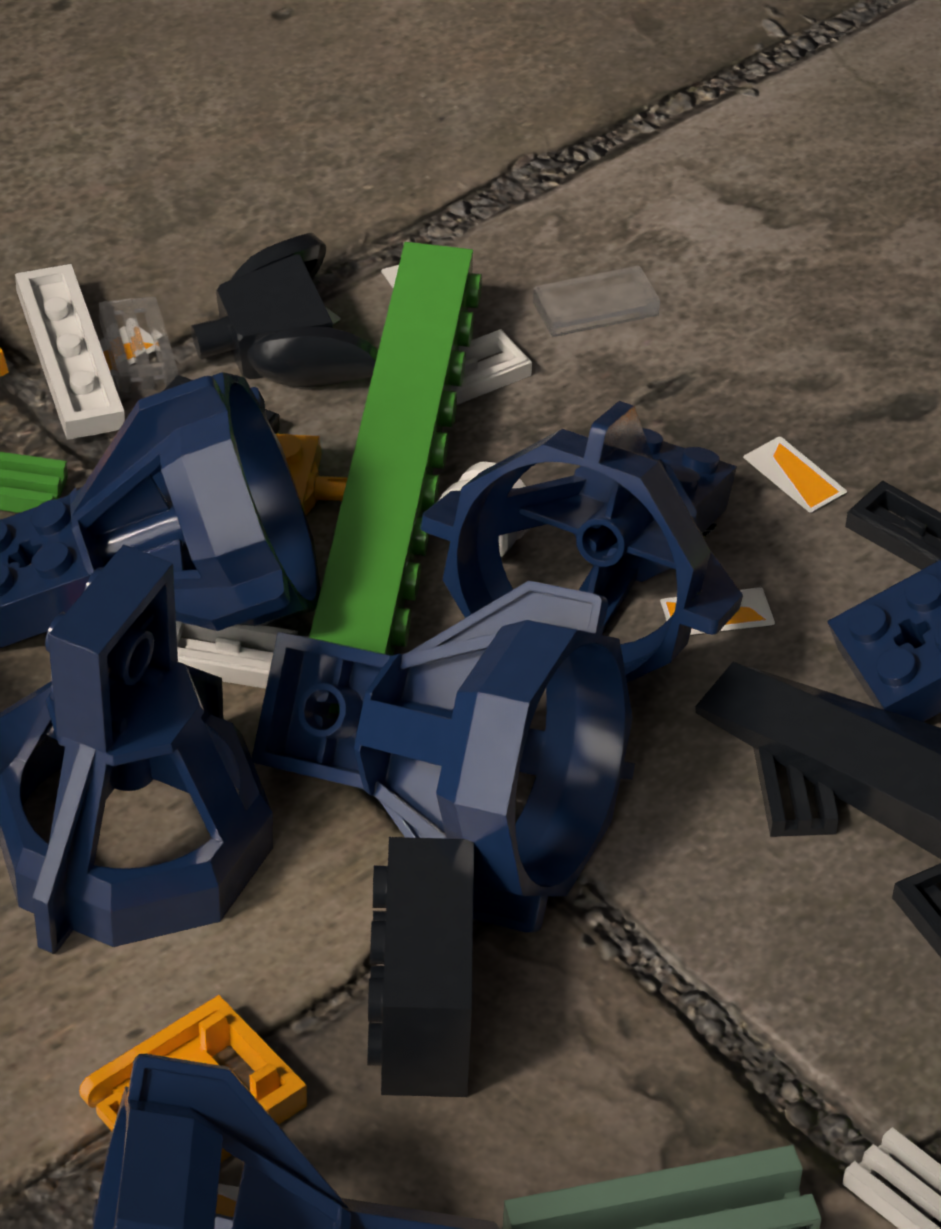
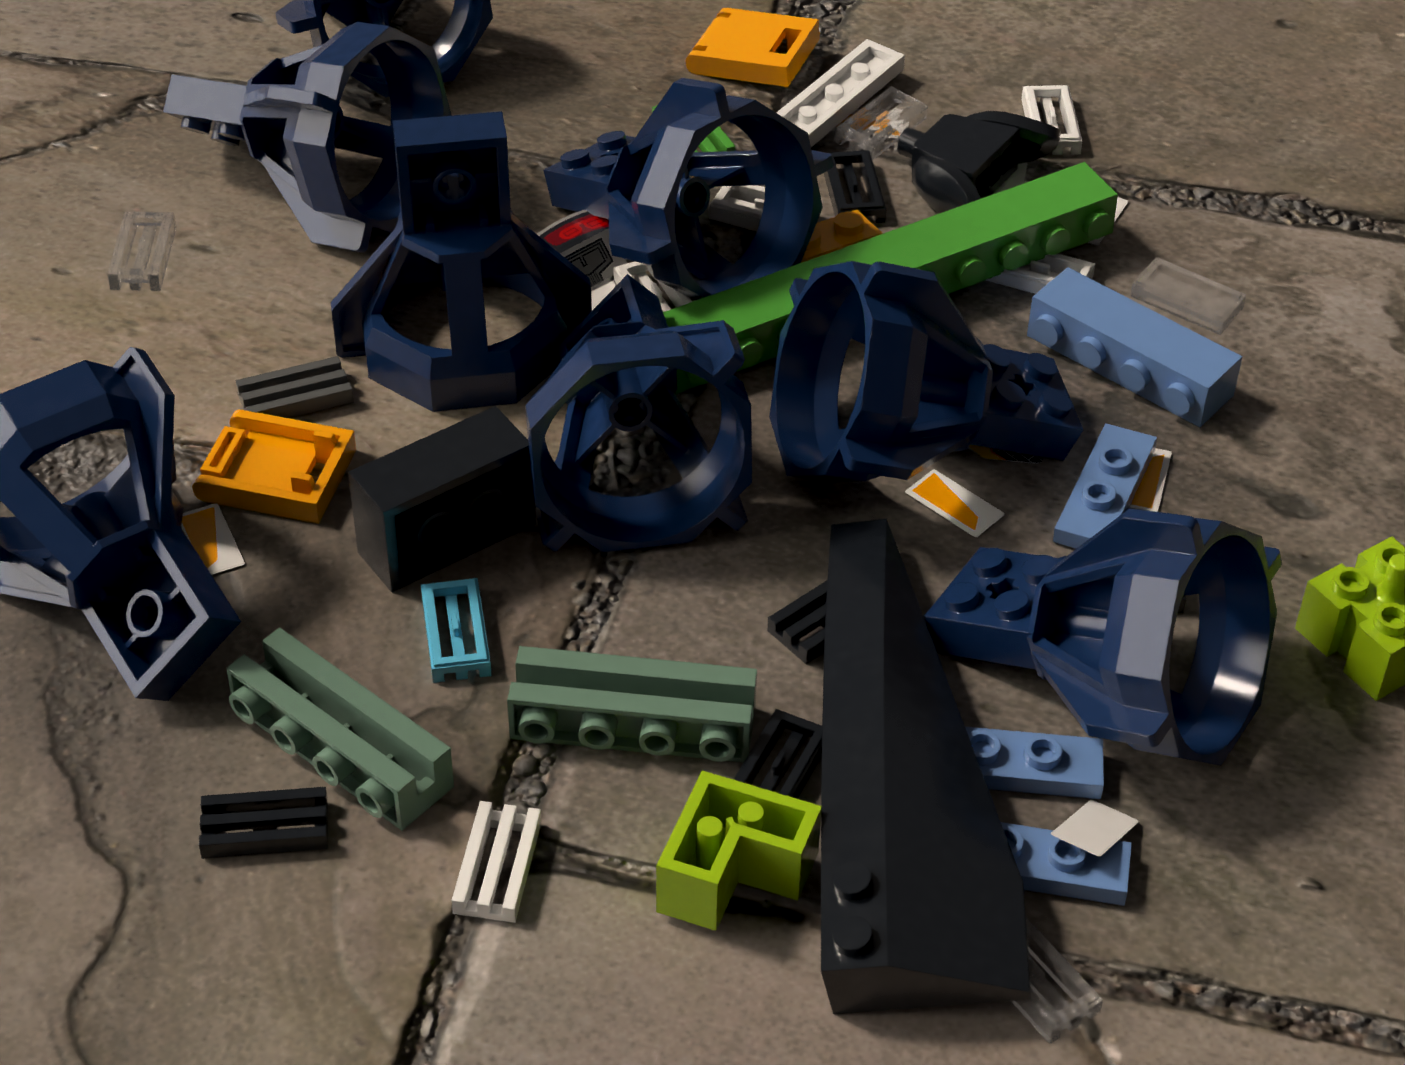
camera: 55 degrees right, 0 degrees up
(101, 976) = (297, 389): none -> dark grey tile
(249, 225) = (1073, 136): none -> white tile
(571, 1077) = (460, 662): none -> medium azure tile
(651, 367) = (1134, 346): none -> medium blue brick
(801, 504) = (1105, 484): none -> medium blue plate
(812, 985) = (632, 704): none -> sand green brick

